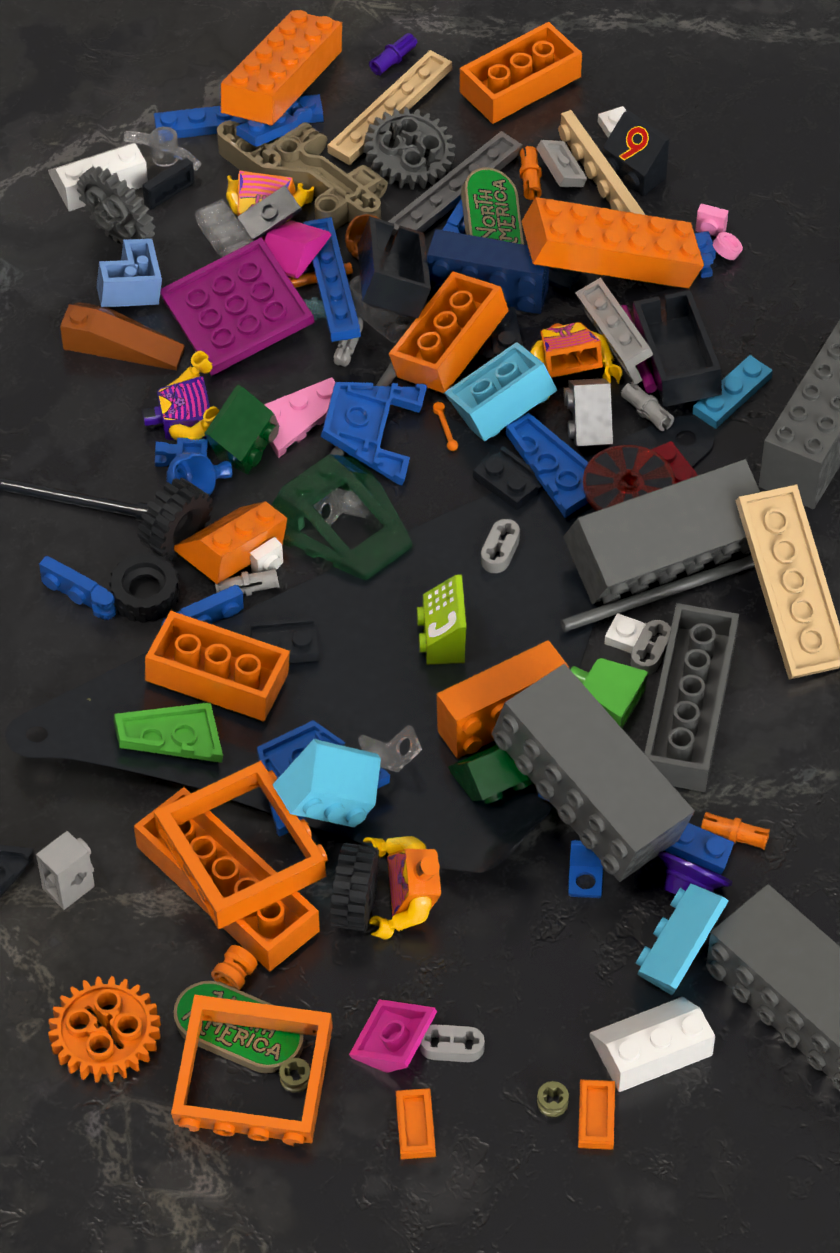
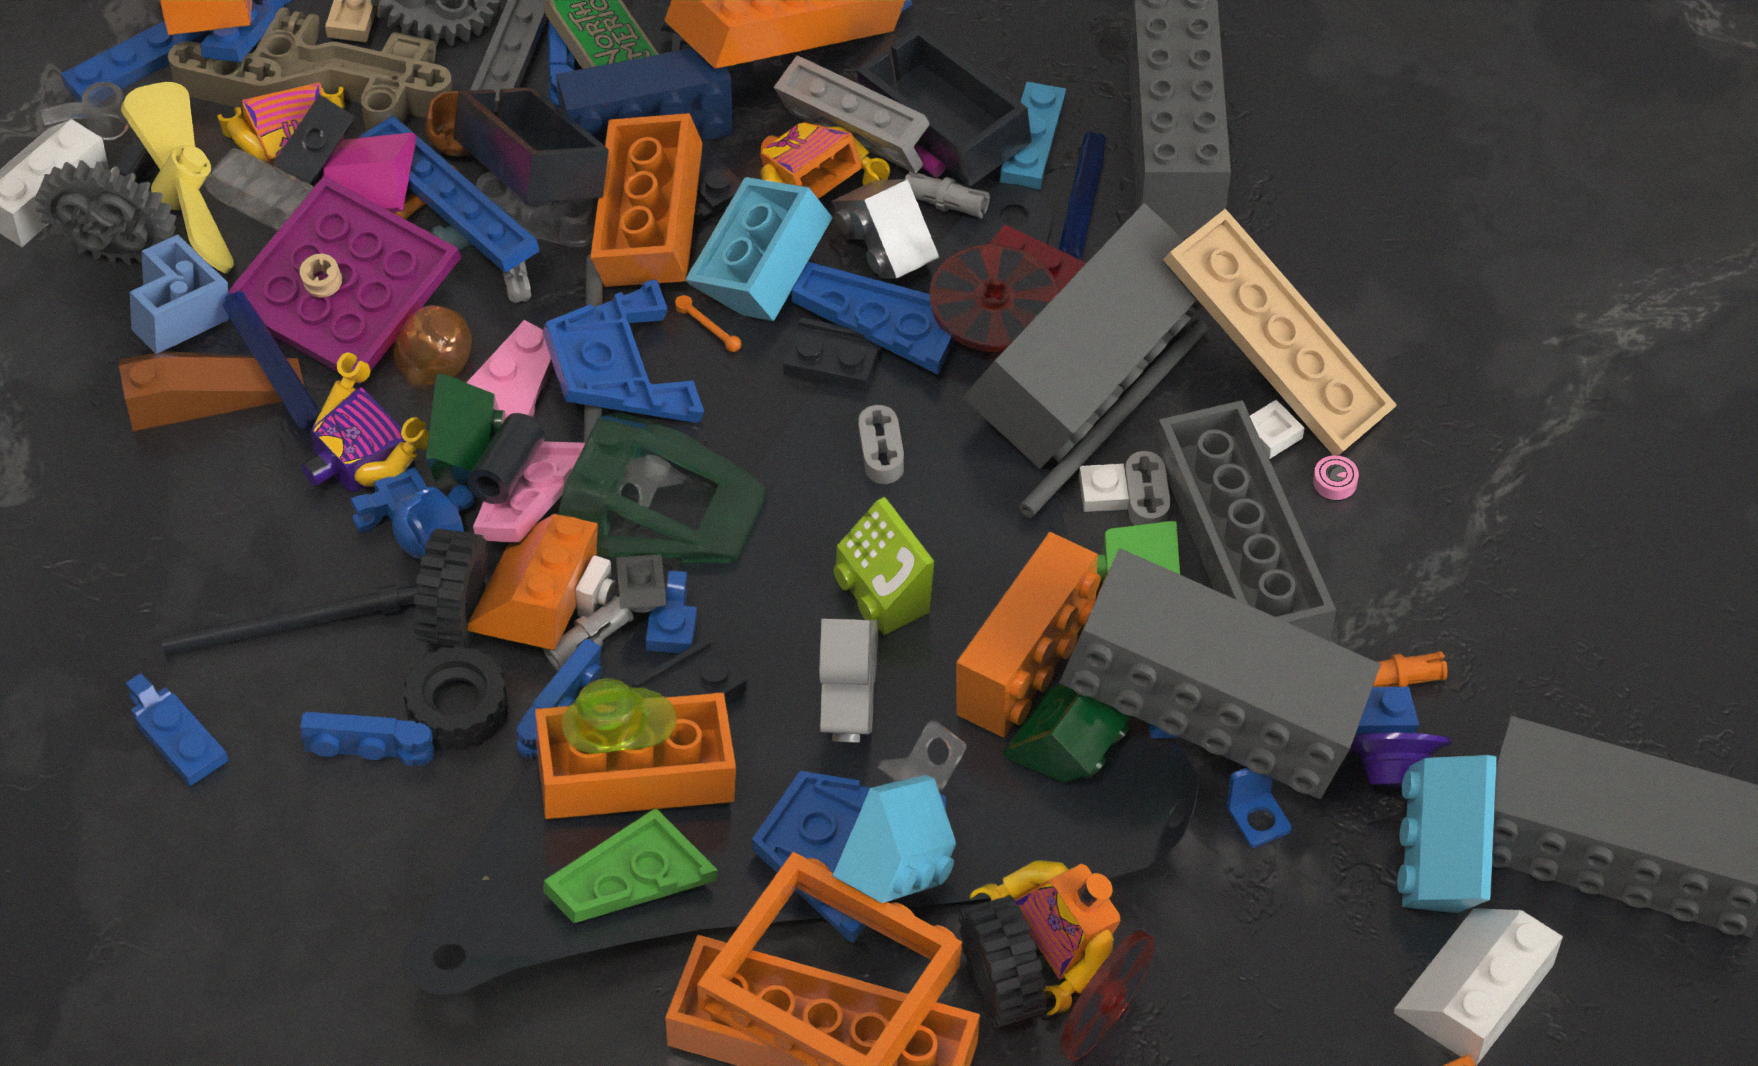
camera: 30 degrees left, 0 degrees up
(164, 337) = (271, 359): none -> clear blue axle
(187, 167) = (164, 125): none -> light yellow piece
(213, 636) = (617, 717): none -> clear neon green piece
(214, 296) = (318, 263): none -> tan bush
(257, 454) = (506, 458): none -> black brick
(260, 479) = (532, 496): none -> bright pink wing
(266, 369) = (432, 344): none -> clear orange piece
(294, 565) = (641, 582): none -> dark grey plate
(302, 600) = (674, 625): none -> blue plate
(372, 670) = (848, 677): none -> light grey brick
(401, 935) = (1107, 995): none -> clear red piece
(740, 439) = (1082, 194): none -> clear blue axle
(758, 643) = (1276, 428): none -> white plate
(780, 692) = (1335, 477): none -> bright pink tile

